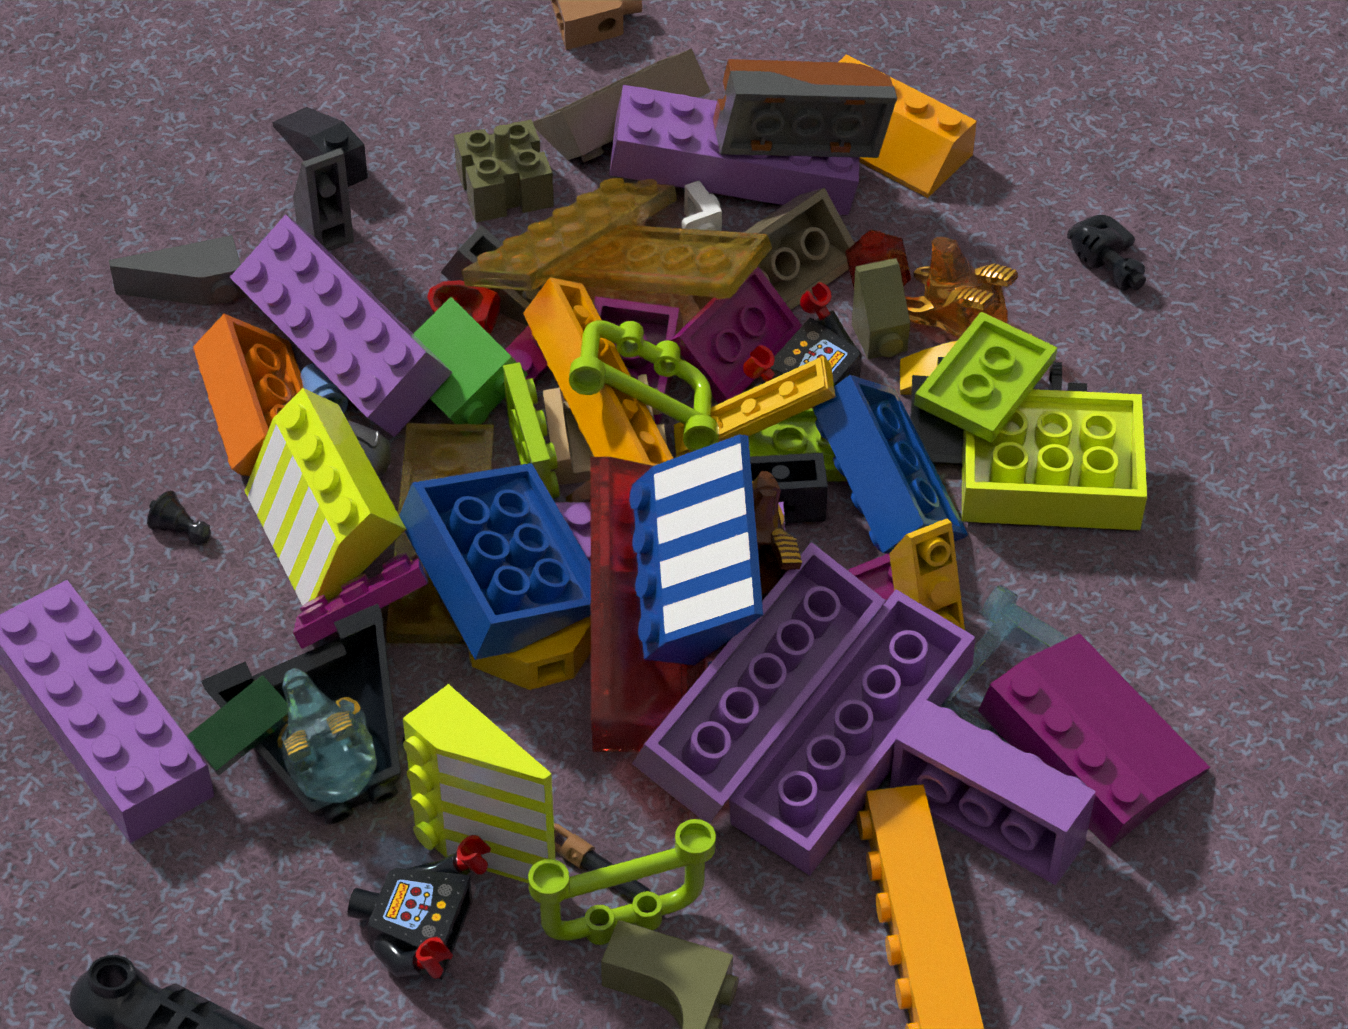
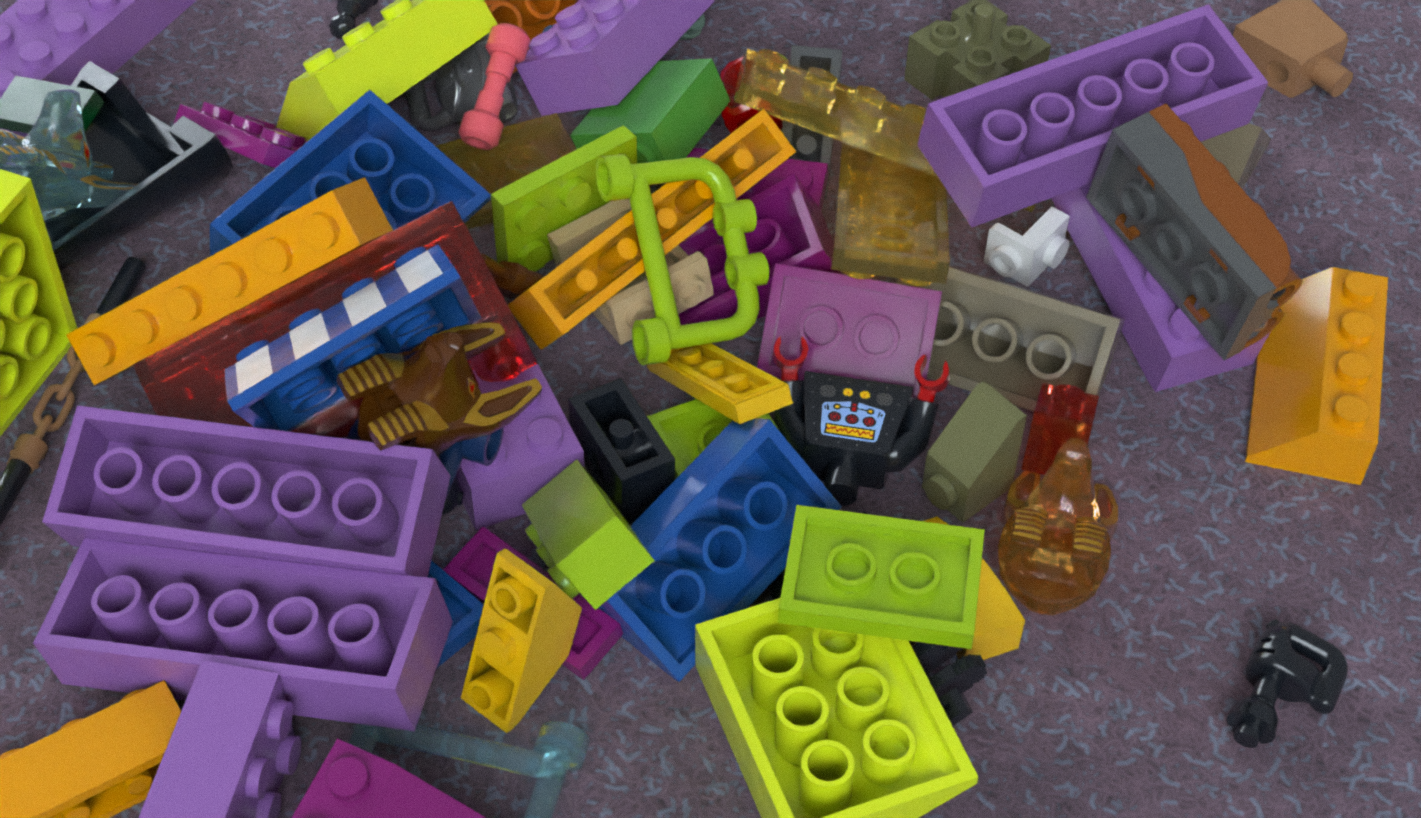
camera: 65 degrees right, 0 degrees up
(363, 410) = (482, 125): none -> coral piece
(558, 620) = (231, 279): none -> light orange brick
(679, 111) = (1051, 122): none -> medium lavender brick
(865, 516) = (584, 537): none -> lime brick

